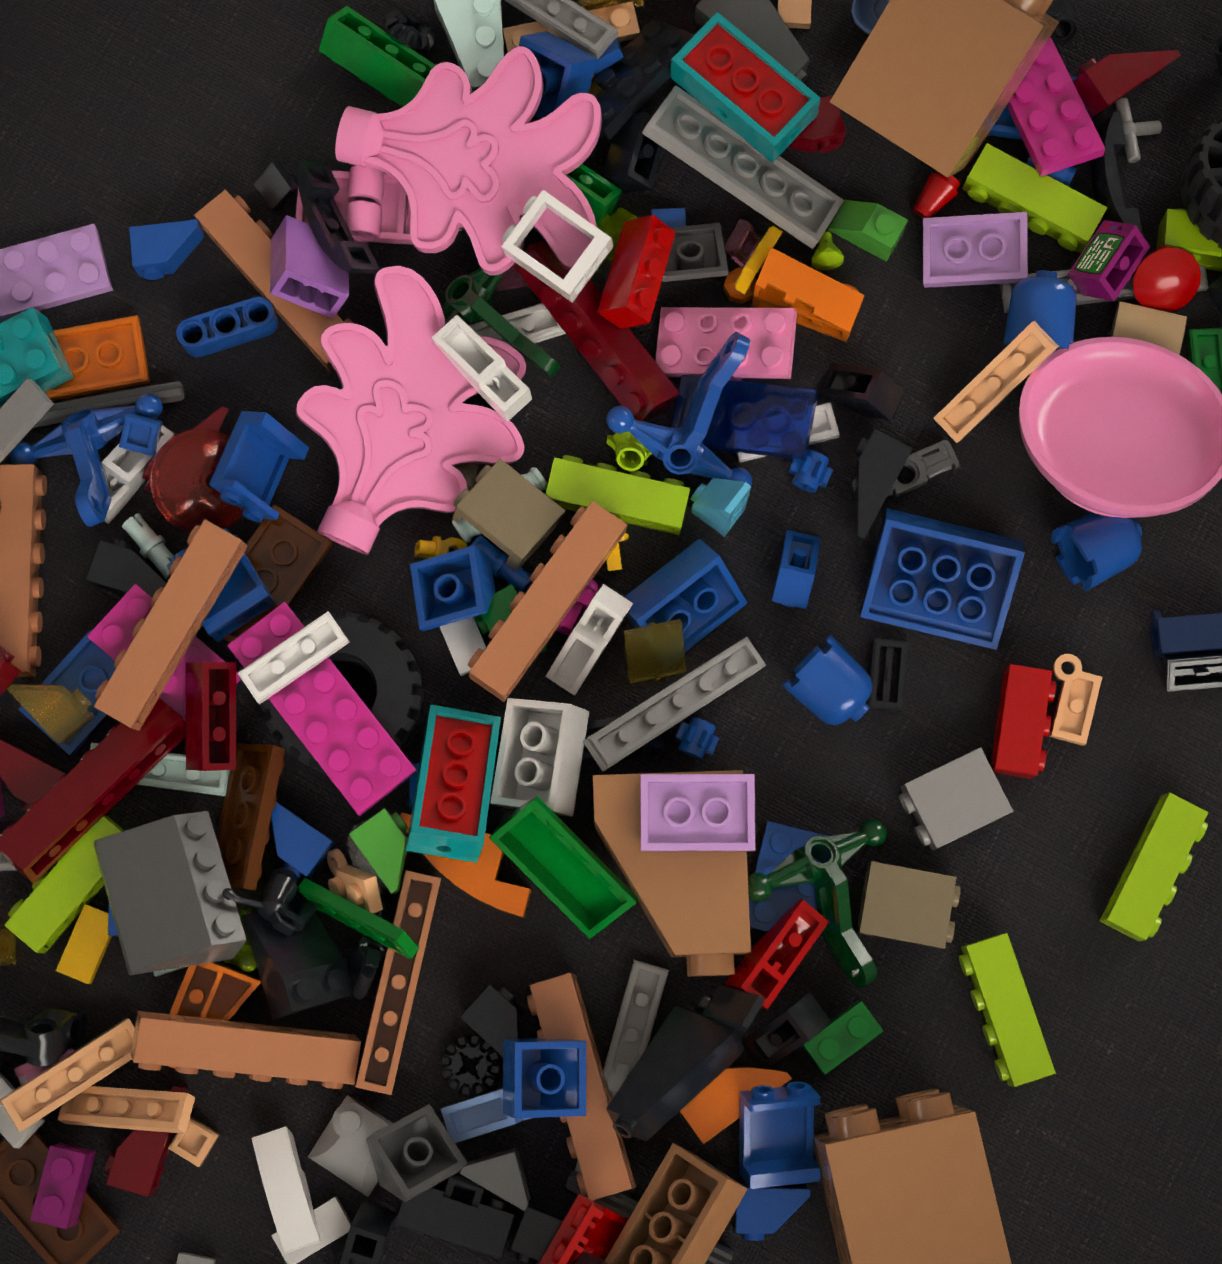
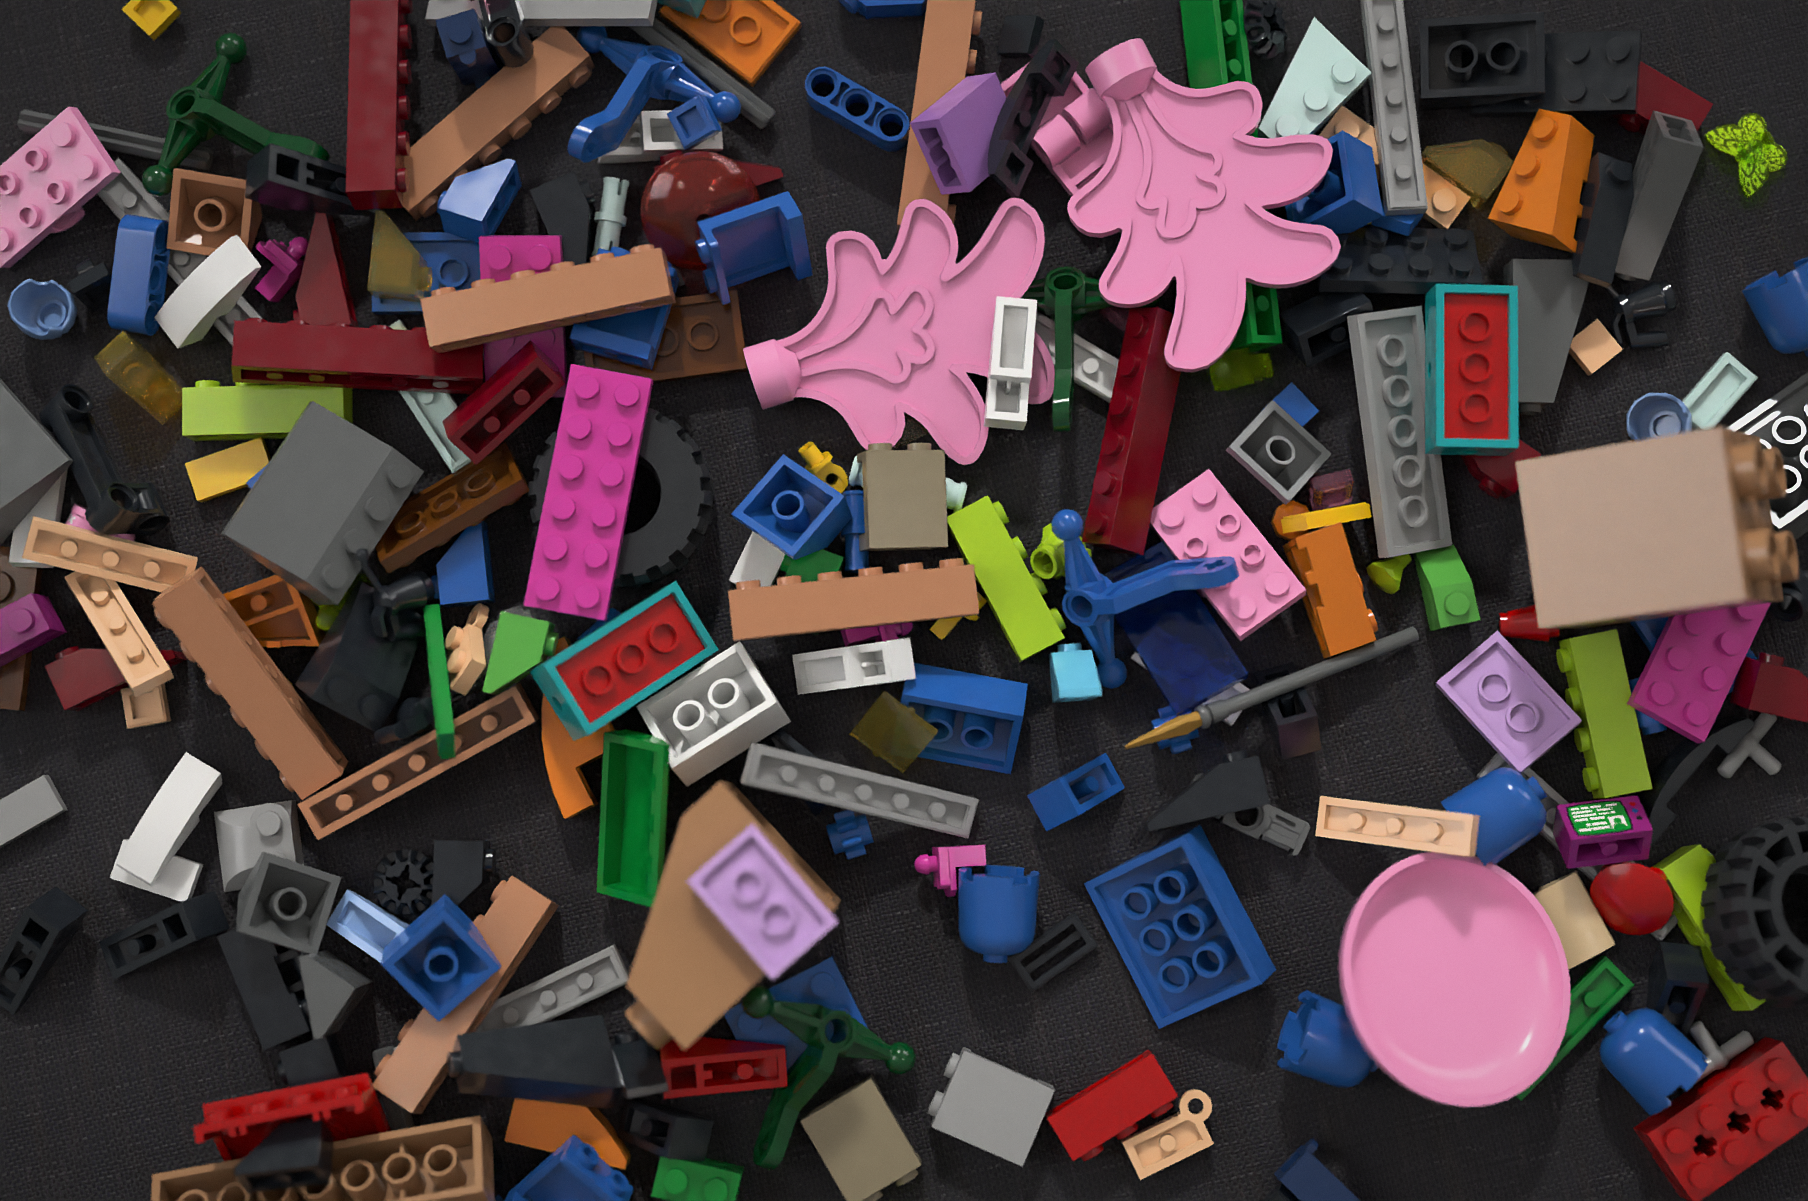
camera: 50 degrees right, 5 degrees up
(61, 620) = (479, 200): none -> slope
(293, 657) = (607, 430): white tile -> none
(585, 265) = (1179, 374): white window -> none
(636, 272) = (1216, 422): red brick -> none
(770, 695) = (944, 864): none -> dark pink piece
(821, 437) = (1221, 709): none -> dark grey piece

